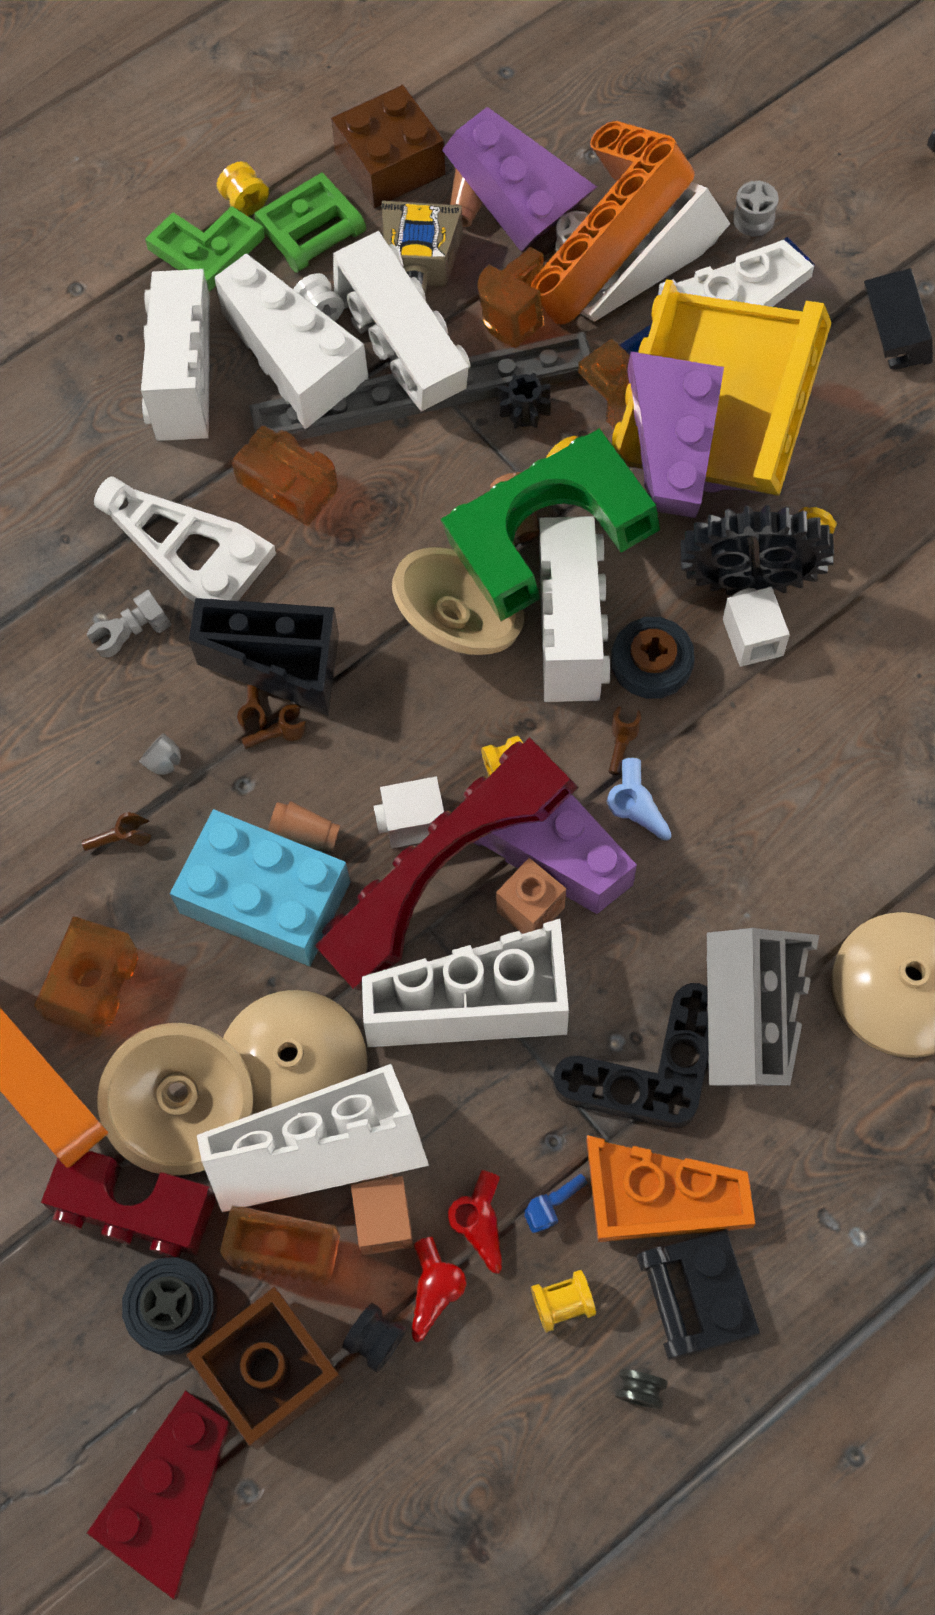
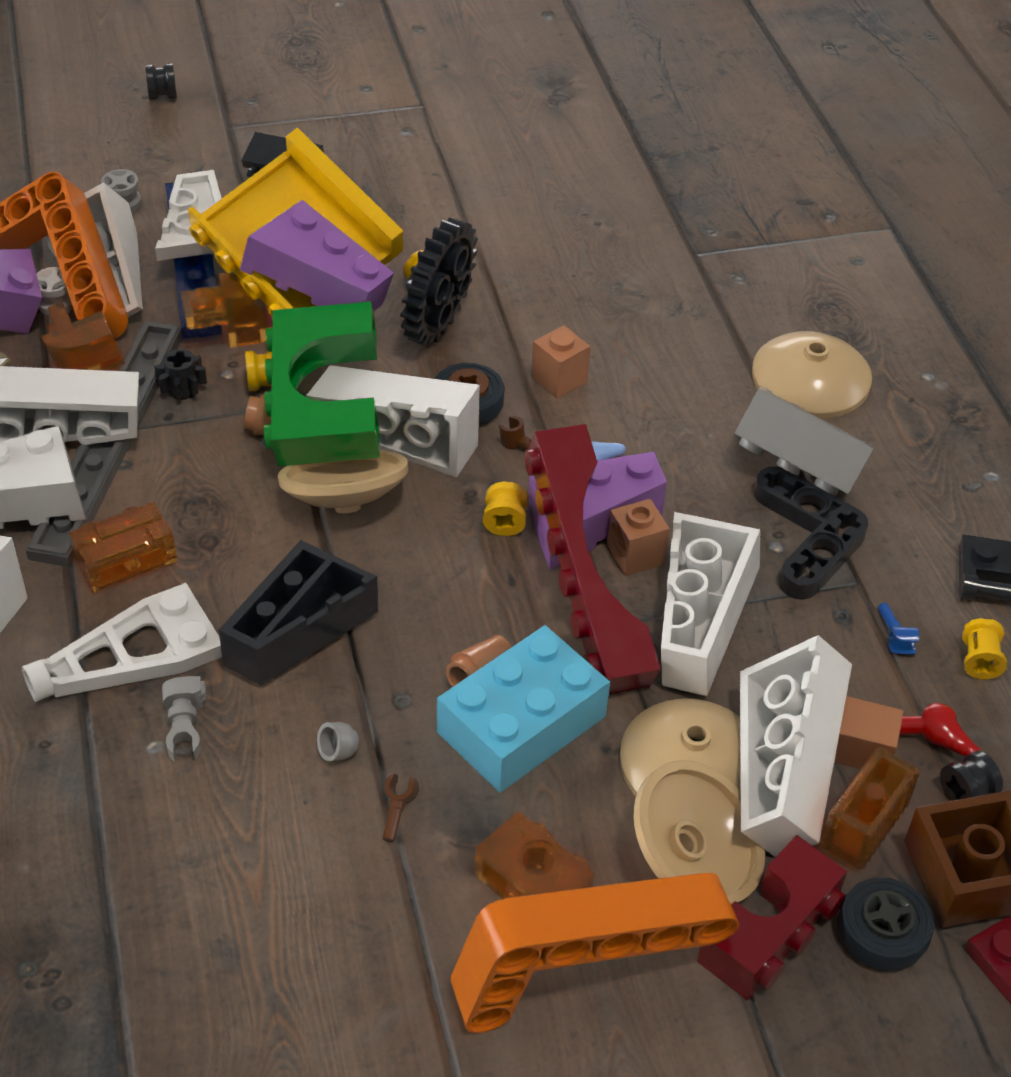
camera: 70 degrees left, 20 degrees down
(252, 707) = (338, 662): reddish brown hand -> none
(281, 728) = (367, 646): reddish brown hand -> none
(408, 810) = (512, 582): white brick -> none
(478, 1220) = (891, 682): red animal -> none
(662, 1195) = (918, 562): orange wing -> none
(746, 720) = (560, 361): none -> nougat brick
(755, 626) = (482, 328): white brick -> none

